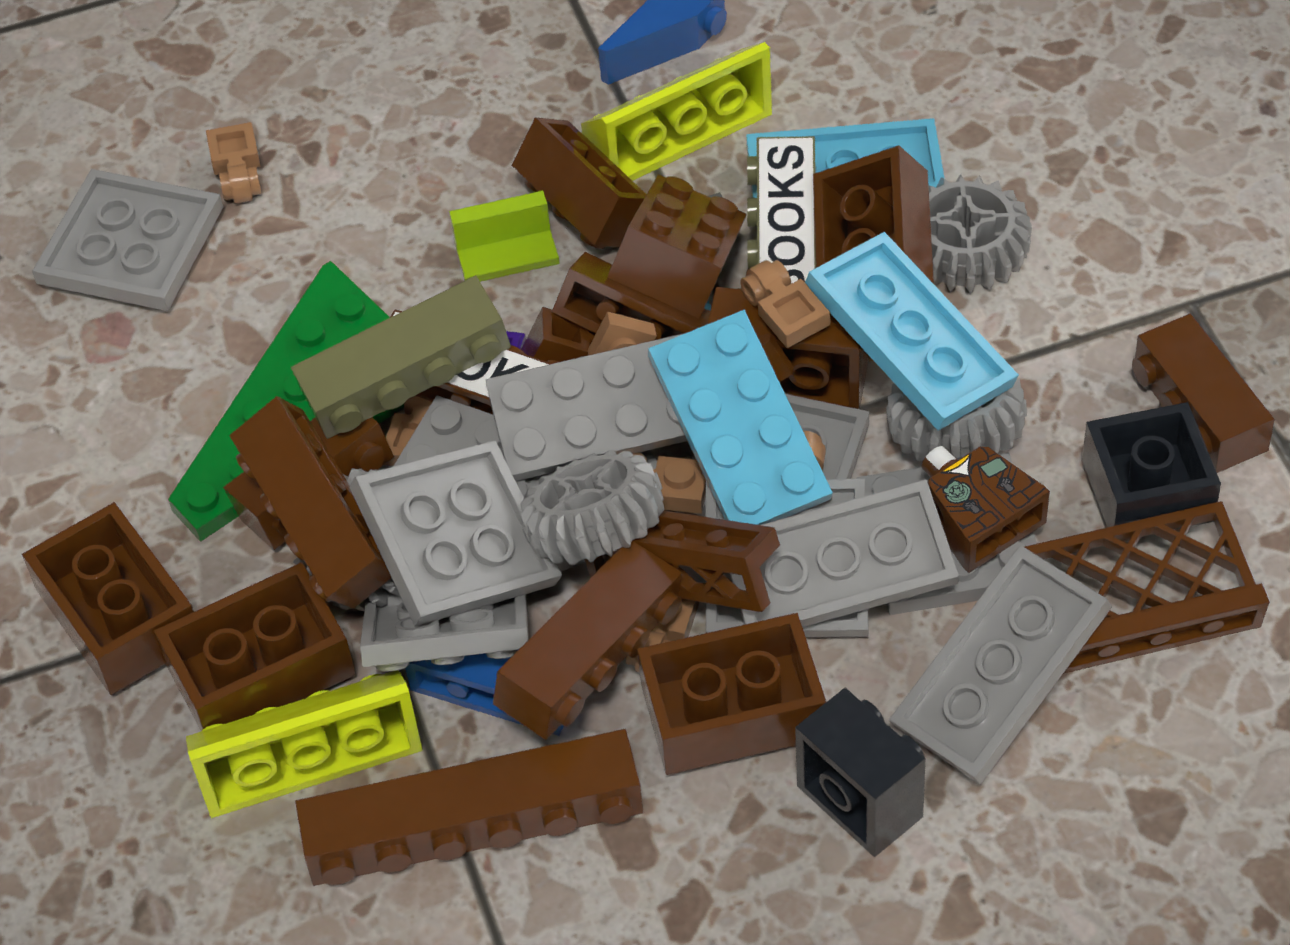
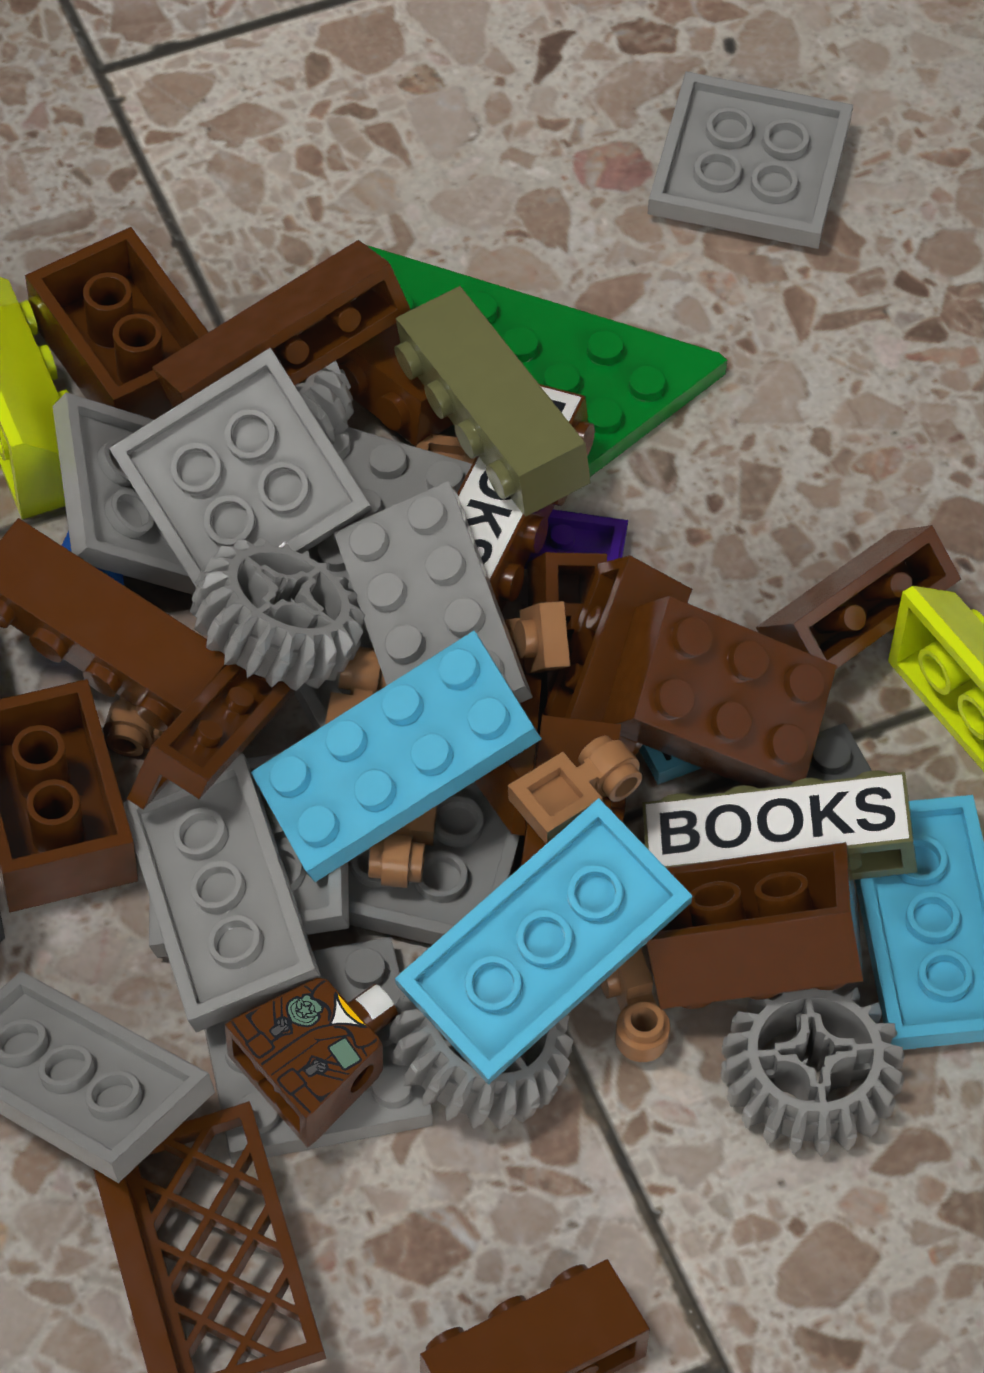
camera: 80 degrees right, 5 degrees up
(107, 594) = (206, 195): reddish brown brick -> none
(235, 160) = (901, 242): medium nougat plate -> none
(504, 237) = (775, 539): lime panel -> none
(1148, 464) = (380, 1268): black brick -> none

